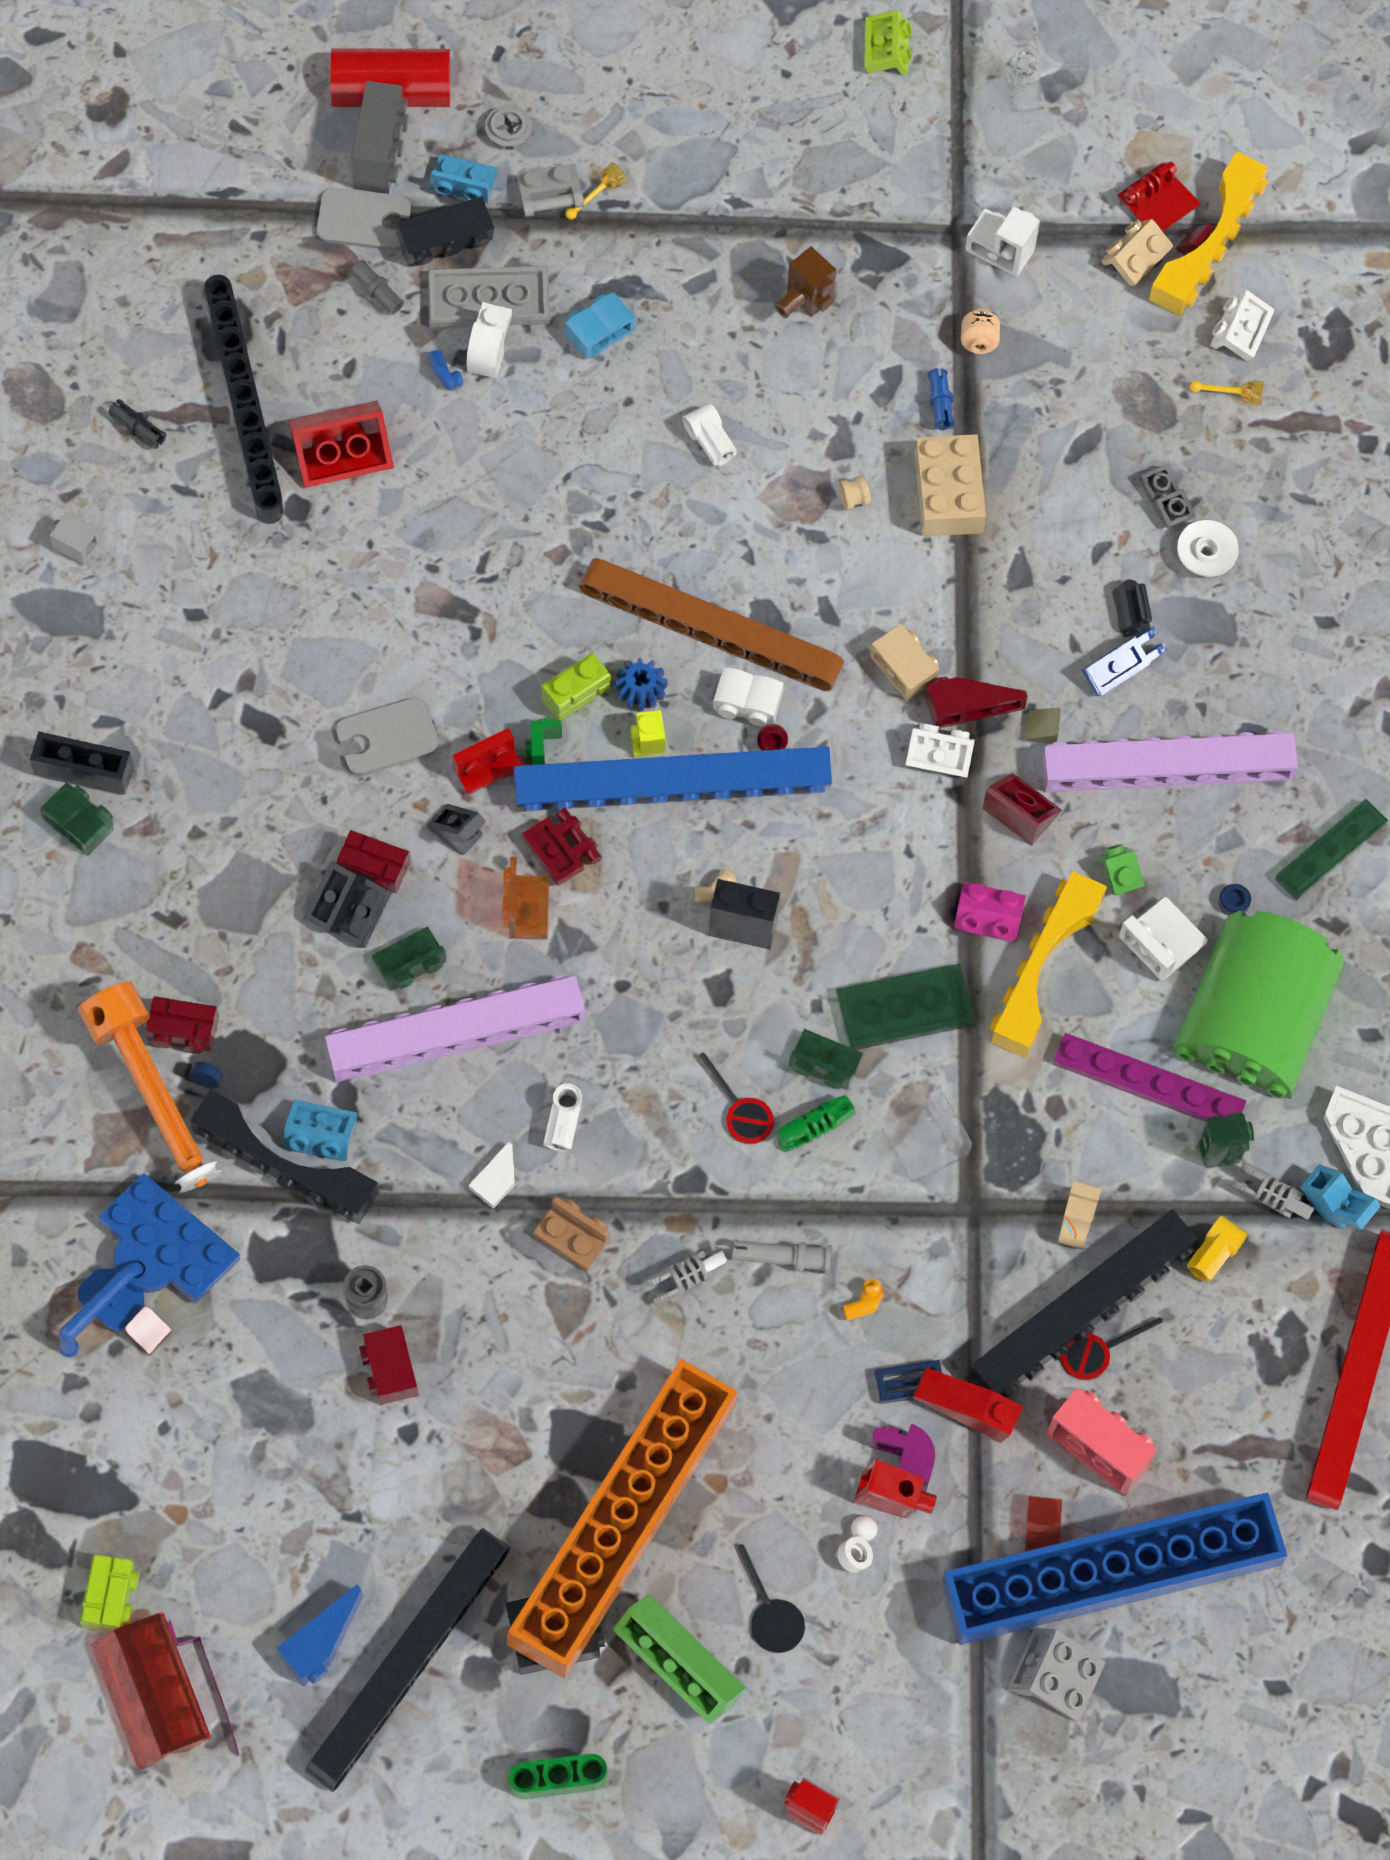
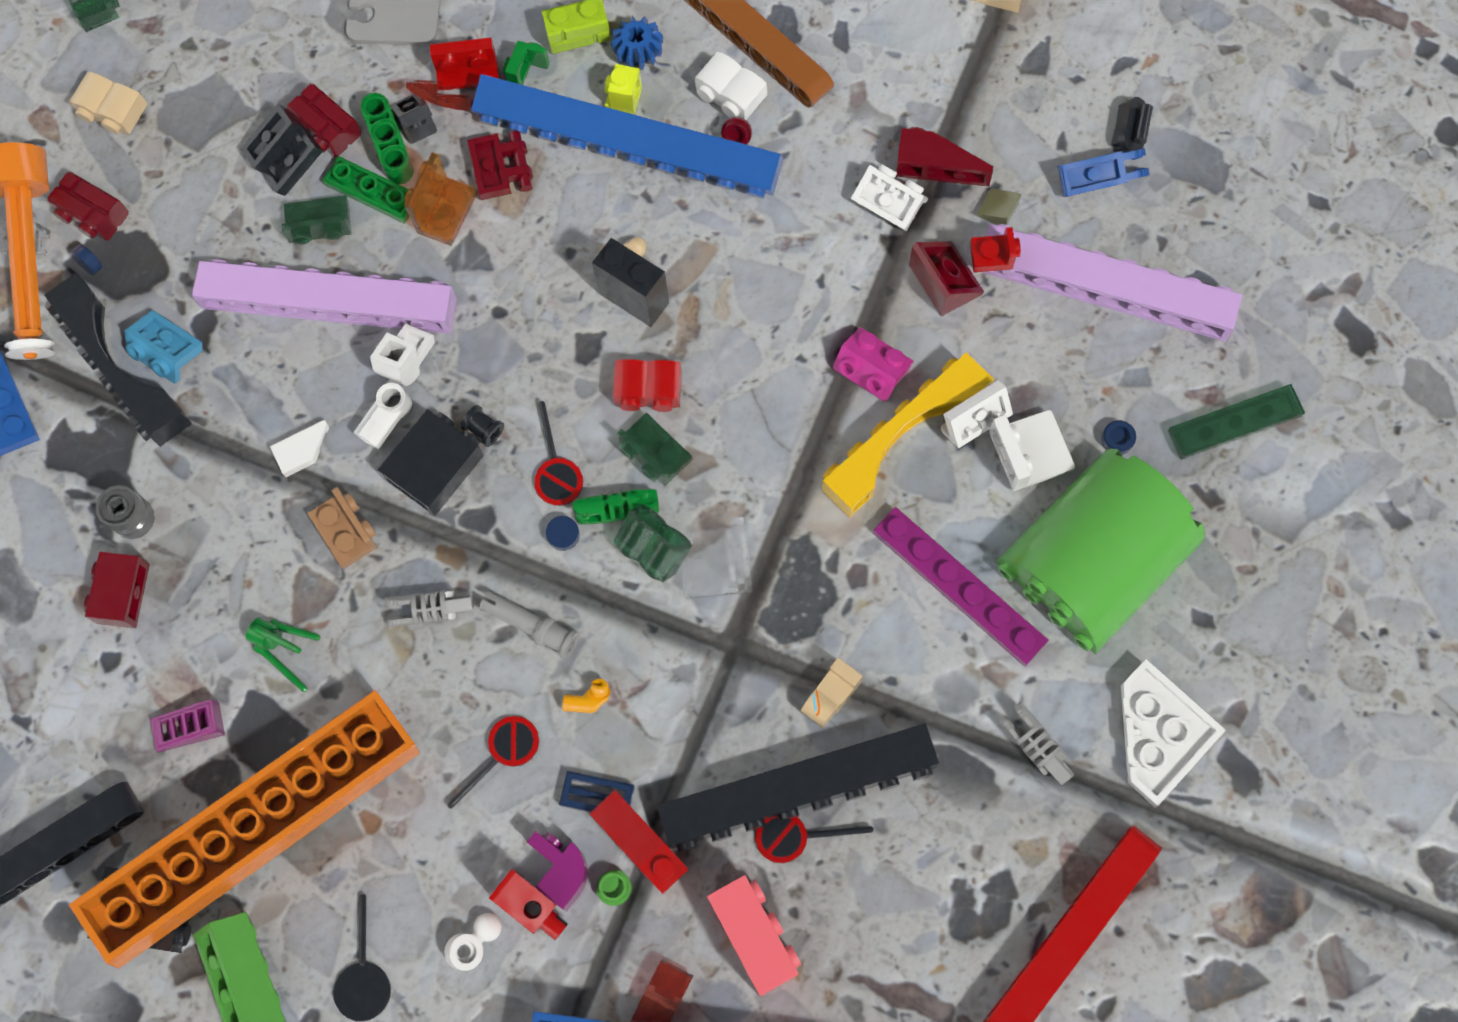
camera: 30 degrees right, 5 degrees up
(152, 918) = (107, 103): none -> tan brick
(437, 845) = (383, 126): none -> green beam
(466, 913) = (354, 183): none -> green tile
(468, 798) = (432, 92): none -> clear red slope
(505, 1451) = (213, 730): none -> magenta slope
(549, 1352) = (267, 636): none -> green plant
(557, 1054) = (401, 355): none -> white brick
(627, 1144) = (431, 461): none -> black brick
(659, 1094) = (482, 425): none -> black bush
(775, 1165) = (562, 533): none -> dark blue tile
(794, 1003) = (647, 384): none -> red brick
(813, 1366) = (511, 743): none -> piece
(864, 1143) = (652, 543): none -> clear green brick
(904, 661) = (891, 102): tan brick -> none
(905, 1007) = (752, 426): clear green tile -> none
(960, 1453) = (613, 887): none -> bright green plate
(1061, 770) = (995, 252): none -> red bracket
(1104, 924) = (976, 414): none -> white bracket
(1121, 869) = (1018, 367): bright green bracket -> none
(1166, 497) = (1207, 33): flat silver slope -> none
(1212, 537) = (1233, 83): white dish -> none
(1220, 1243) = (962, 776): yellow piece -> none
(1225, 1140) = (1009, 673): clear green brick -> none
(1336, 1200) = (1100, 776): dark azure brick -> none

